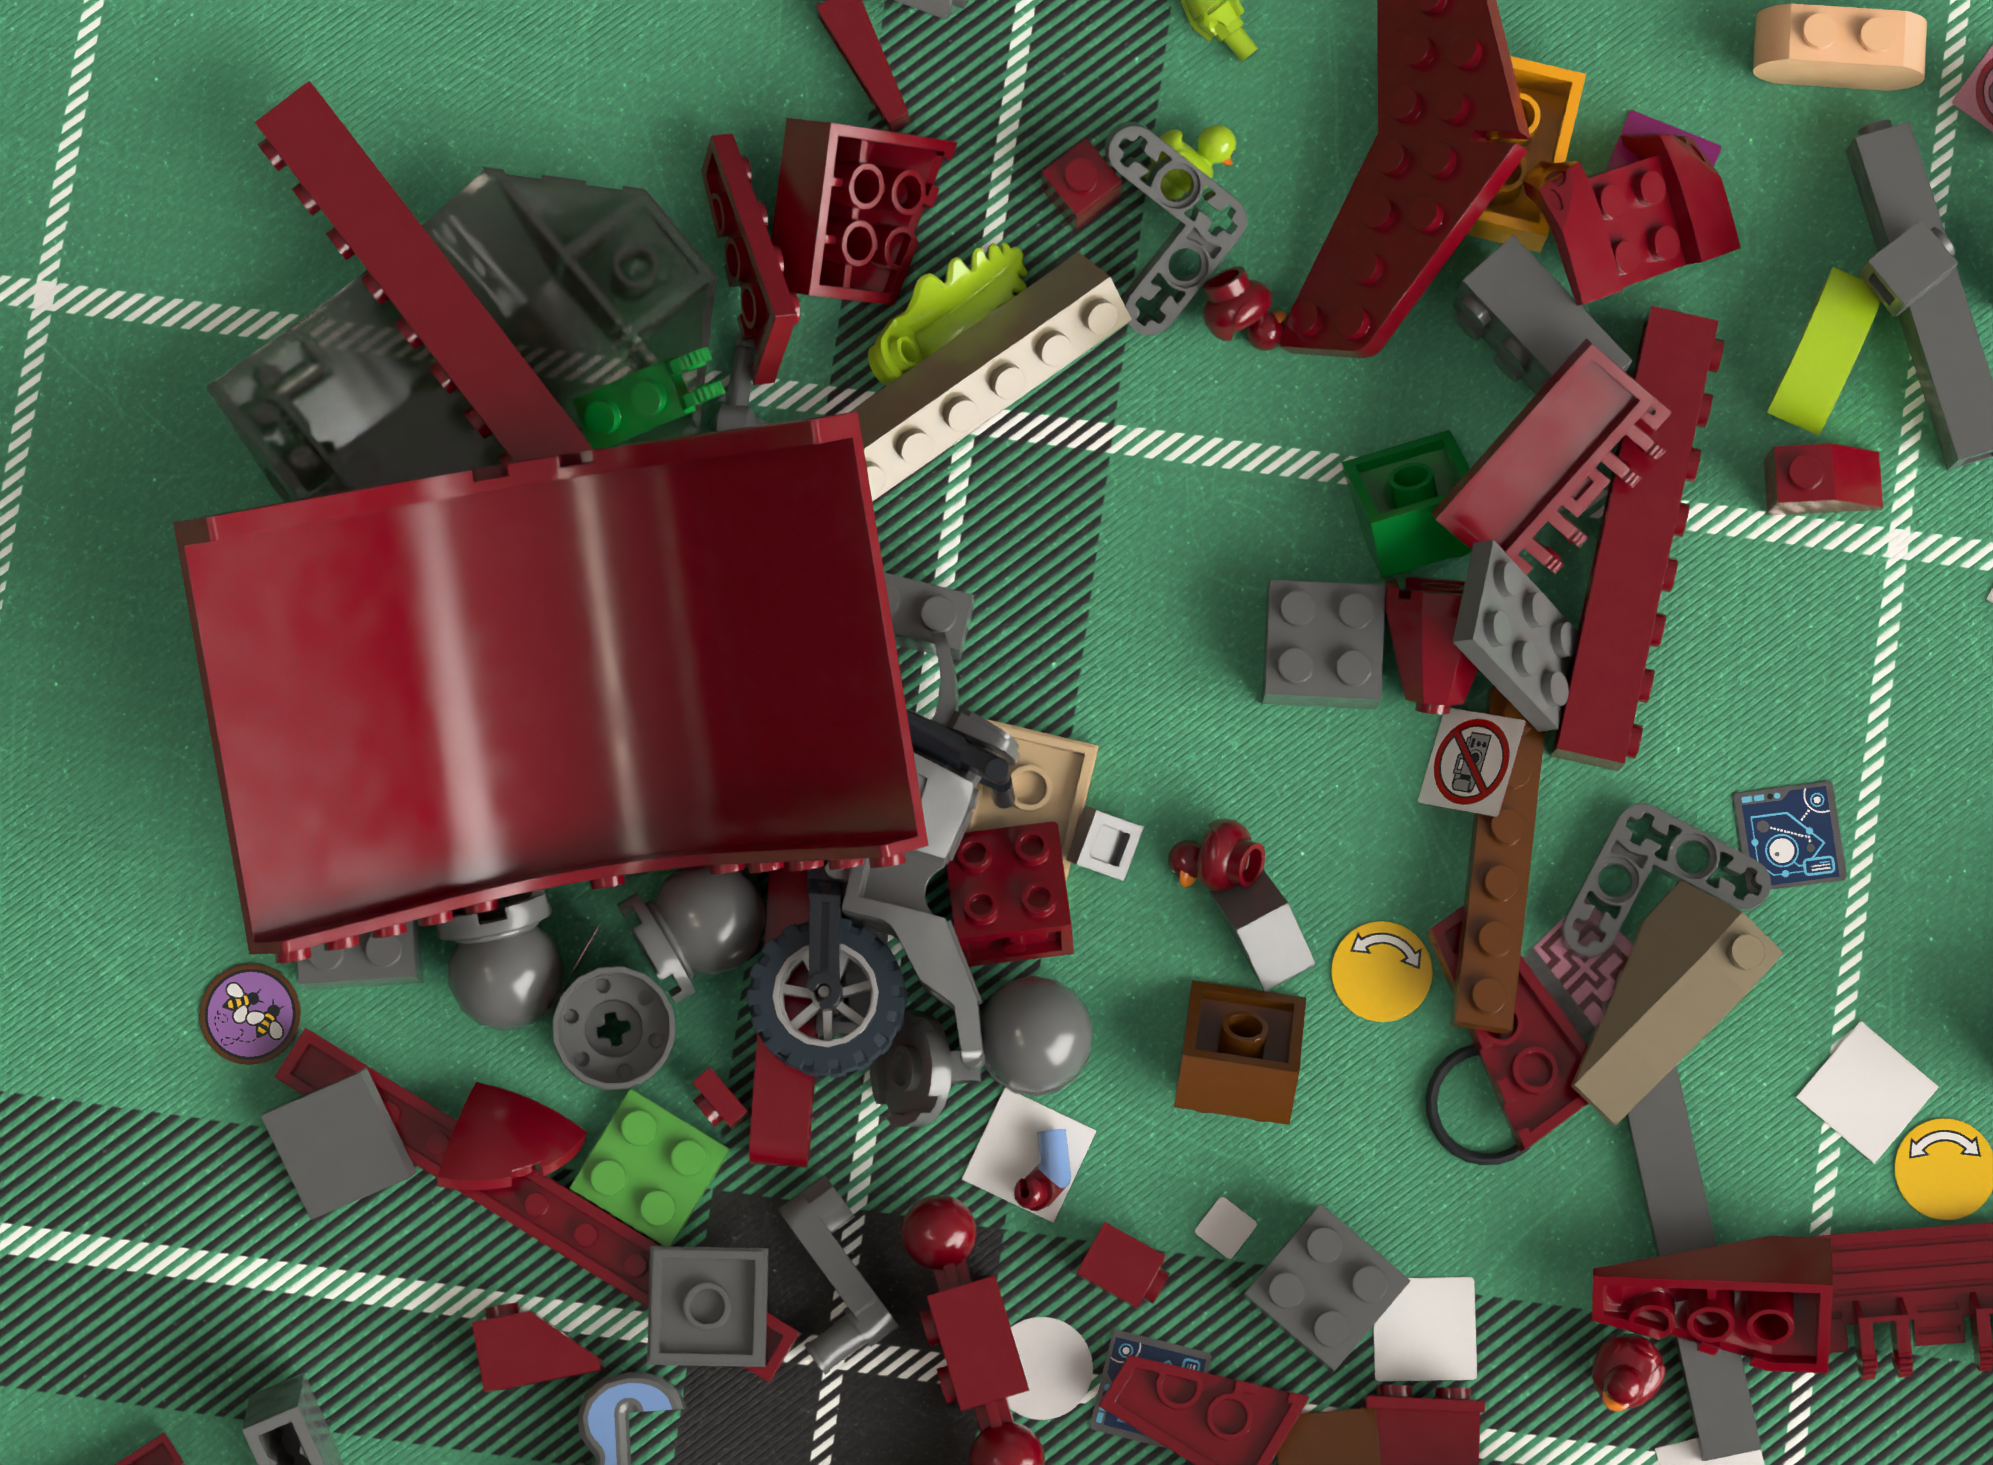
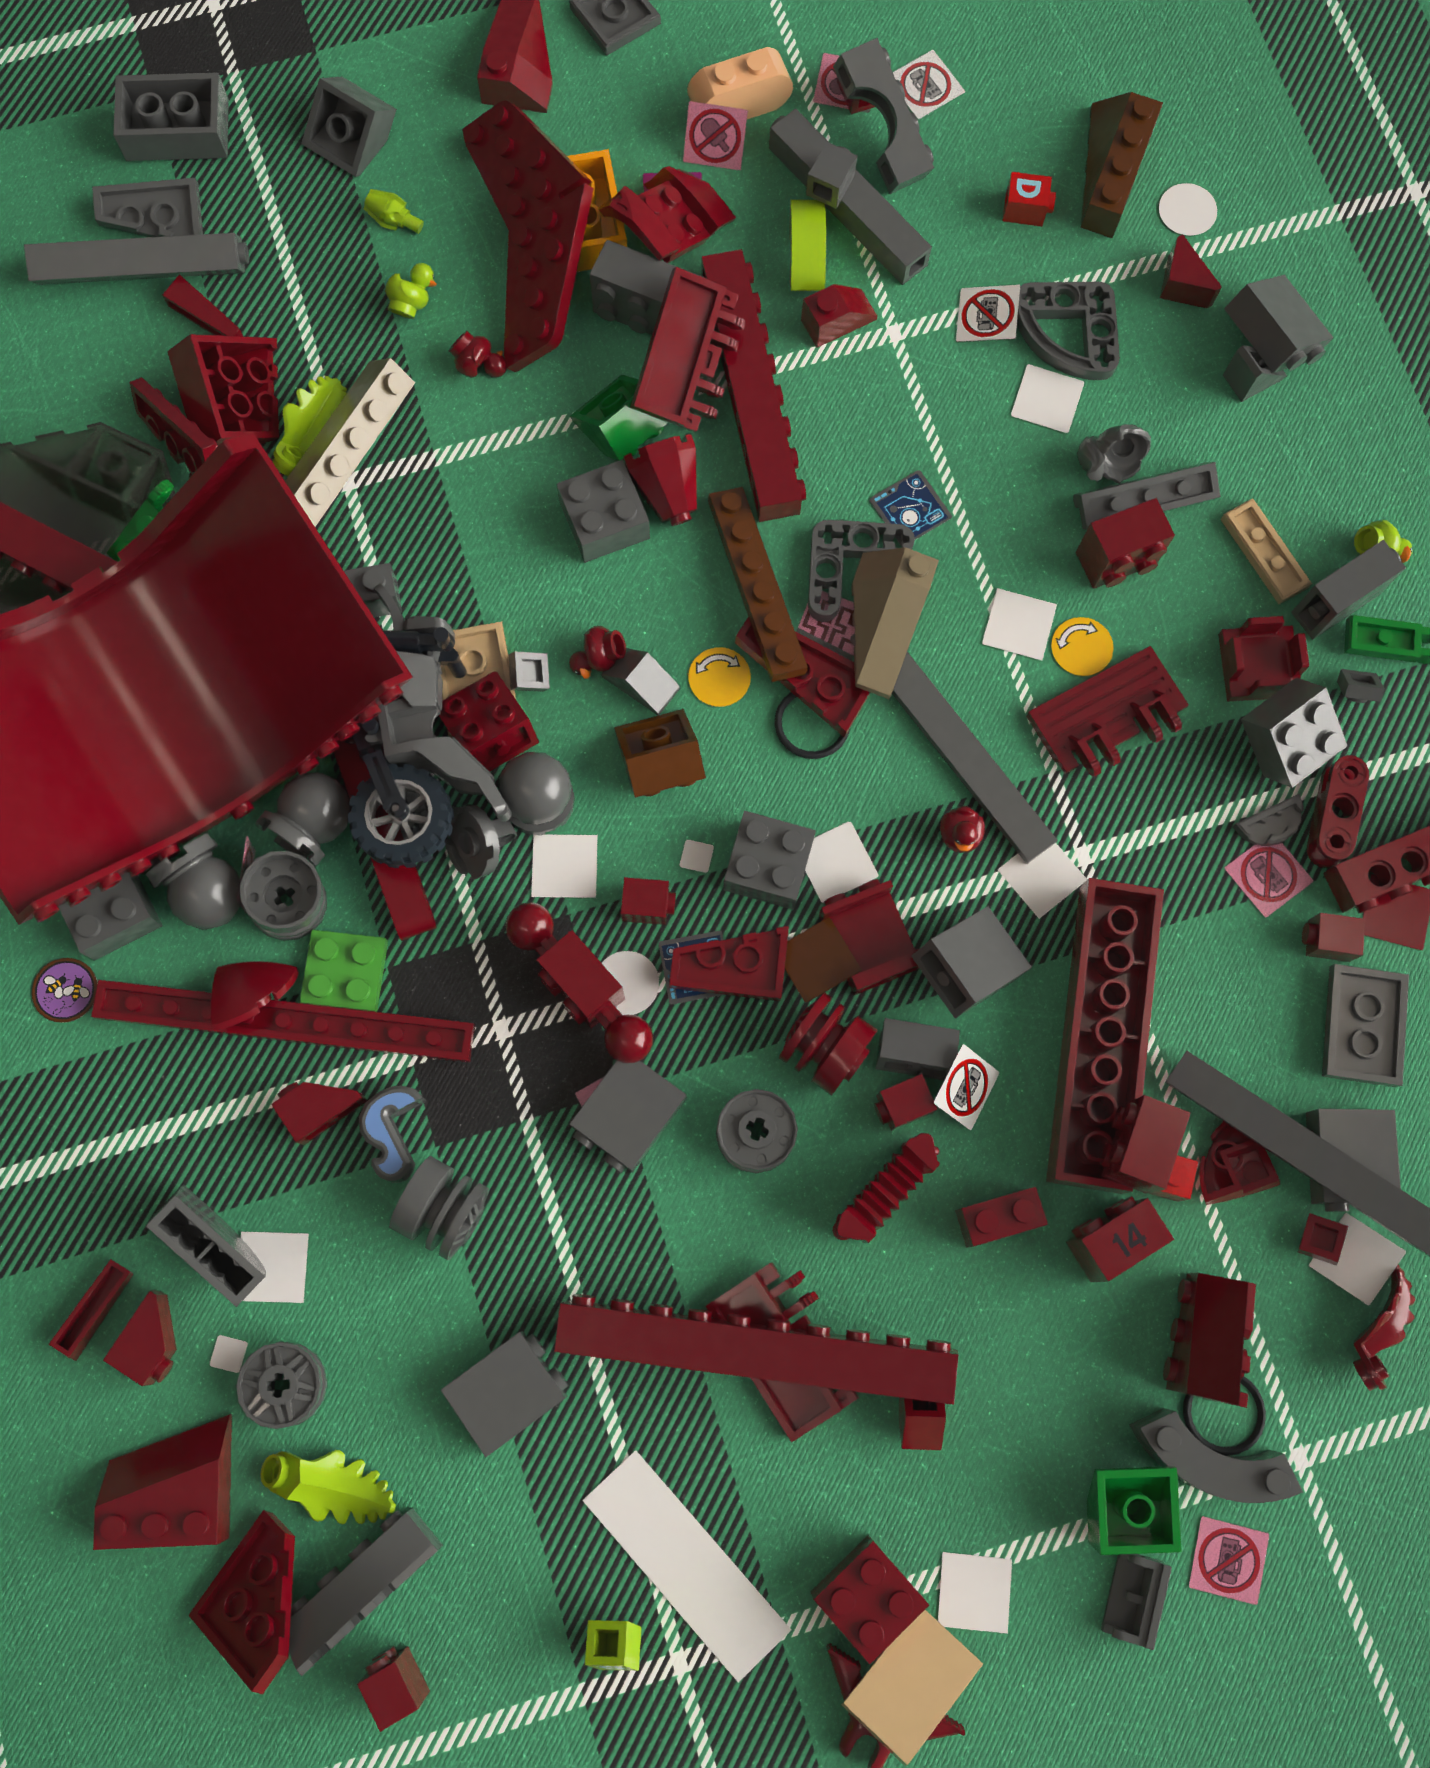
camera: 30 degrees left, 5 degrees down
(338, 1143) = (146, 1037): dark grey tile -> none
(707, 1306) = (411, 1032): dark grey tile -> none
(718, 1101) = (366, 912): dark red plate -> none
(814, 1218) = (453, 956): dark grey beam -> none
(1050, 1176) = (581, 871): arm -> none
(1081, 184) = (355, 326): dark red brick -> none
(1190, 232) = (428, 320): dark grey beam -> none
(1472, 762) = (716, 538): sticker -> none
(1515, 636) = (708, 451): dark grey plate -> none
(1742, 1297) = (1007, 759): dark red wedge -> none
(1765, 108) = (715, 135): none -> clear pink sticker

